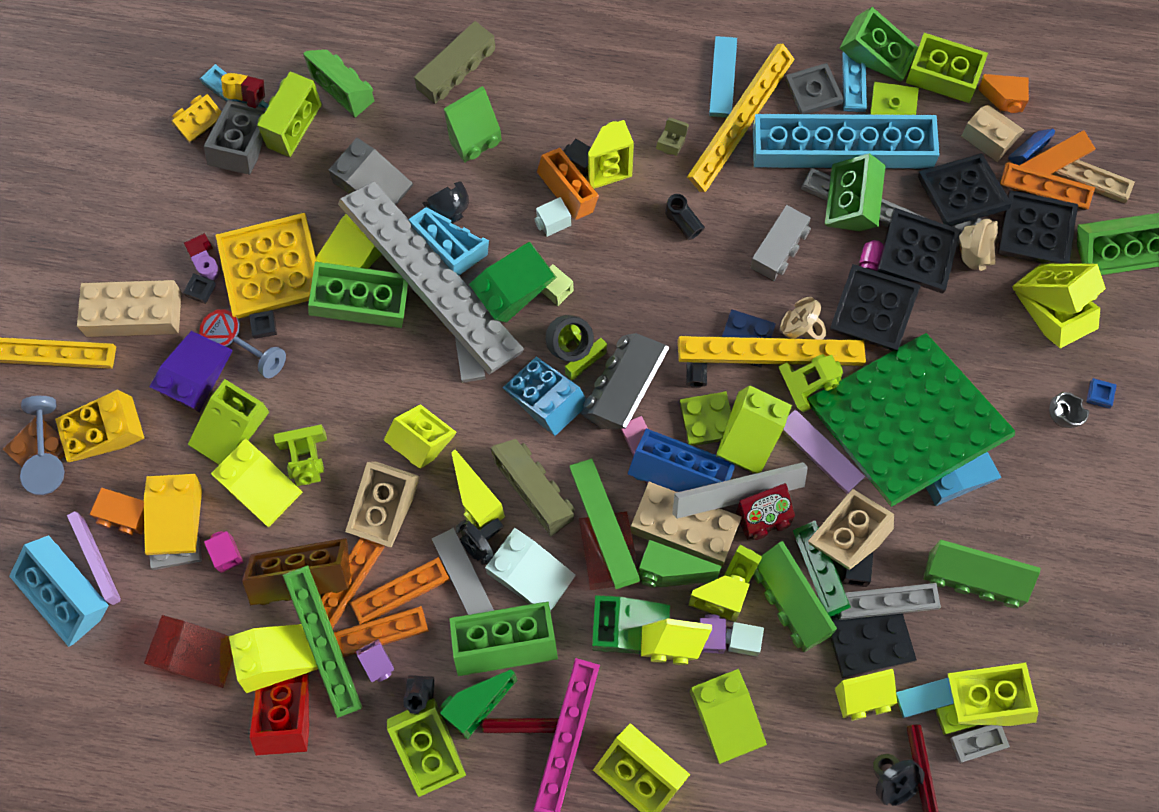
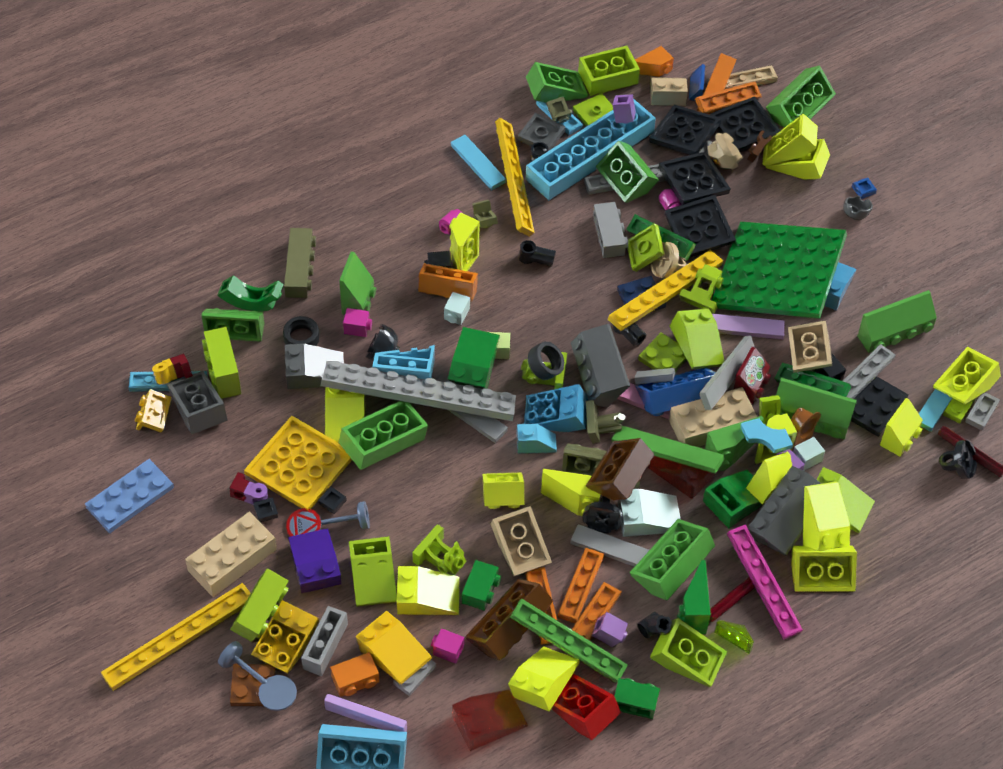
camera: 45 degrees left, 15 degrees down
(95, 379) = (260, 605): none -> lime brick
(107, 184) = (129, 495): none -> medium blue plate
(123, 458) = (324, 640): none -> light grey brick
(307, 516) = (480, 585): none -> green brick
(334, 748) = (636, 698): none -> green brick
(378, 62) = (249, 297): none -> green arch
(386, 122) = (297, 323): none -> black tyre
(449, 162) = (357, 322): none -> dark pink brick
(492, 766) = (735, 634): none -> clear neon green slope
(497, 409) = (535, 439): none -> medium azure slope
(520, 512) = (621, 469): none -> reddish brown slope
(572, 440) = (601, 424): none -> olive piece
(637, 121) = (444, 223): none -> dark pink brick
(655, 687) = (781, 517): none -> dark grey slope
(672, 434) = (655, 376): none -> light grey tile
(681, 727) = (825, 517): none -> neon yellow slope
(706, 602) = (774, 439): none -> medium azure tile
(762, 608) = (804, 423): none -> dark orange piece
(789, 105) = (538, 150): none -> black wheel
(794, 289) = (645, 247): none -> lime plate
(822, 289) = (684, 246): none -> green plate
(851, 76) = (559, 110): none -> olive bracket
(907, 122) = (624, 108): none -> medium lavender brick
(1020, 264) = (757, 148): none -> reddish brown plate

